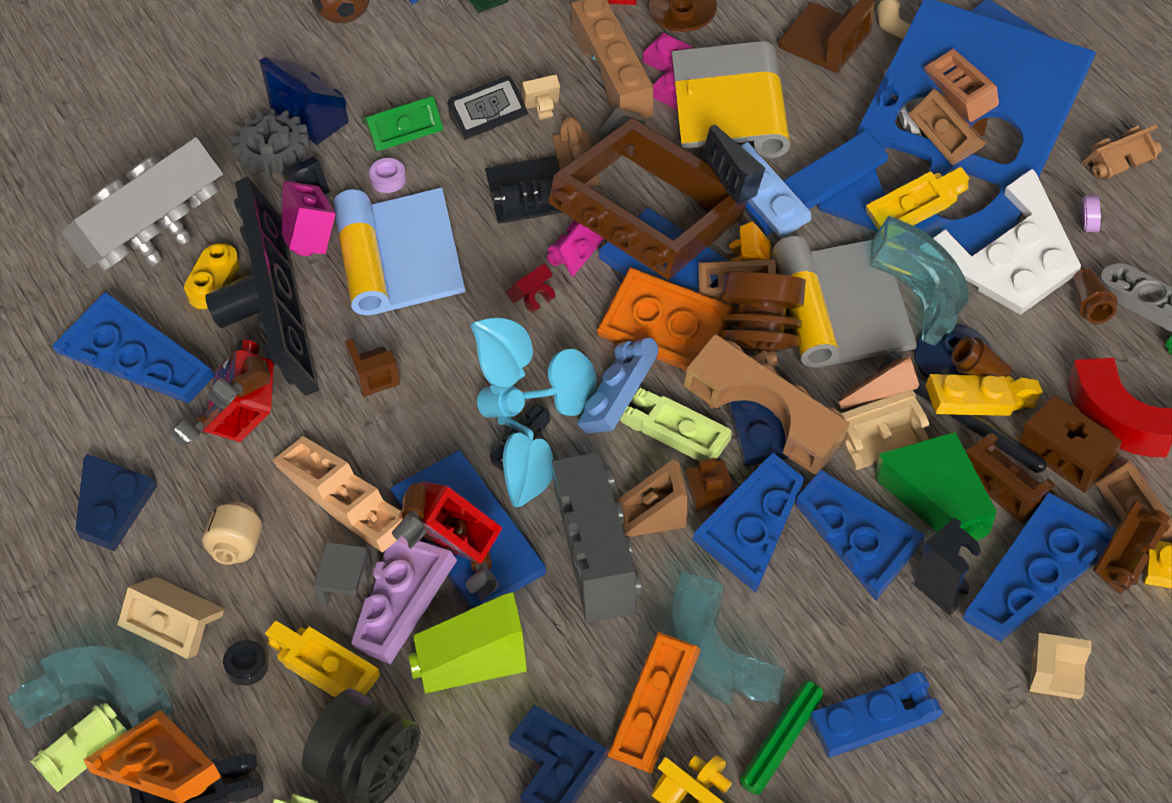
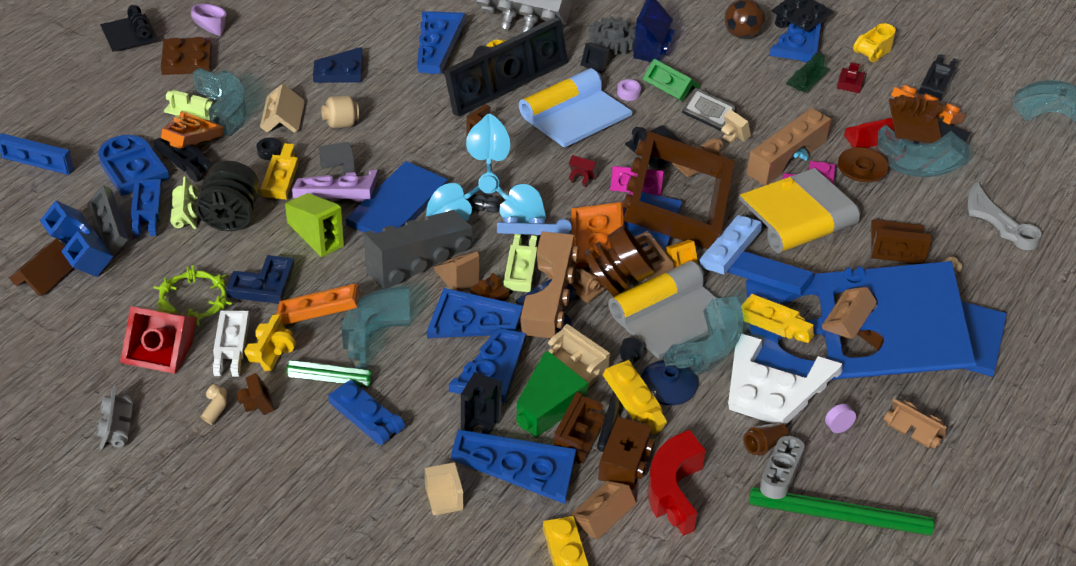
camera: 60 degrees right, 10 degrees down
(237, 398) = (418, 75): torso -> none
(306, 218) = (565, 62): dark pink slope -> none
(340, 492) = (391, 145): light nougat slope -> none
(453, 525) = (379, 174): torso -> none
(617, 119) = (743, 169): dark grey tile -> none
(737, 170) = (720, 215): black slope -> none
(889, 381) = (610, 340): slope -> none
(972, 103) = (885, 308): nougat slope -> none
(976, 358) = (661, 386): reddish brown cone -> none
(1127, 549) = (554, 500): reddish brown hinge -> none

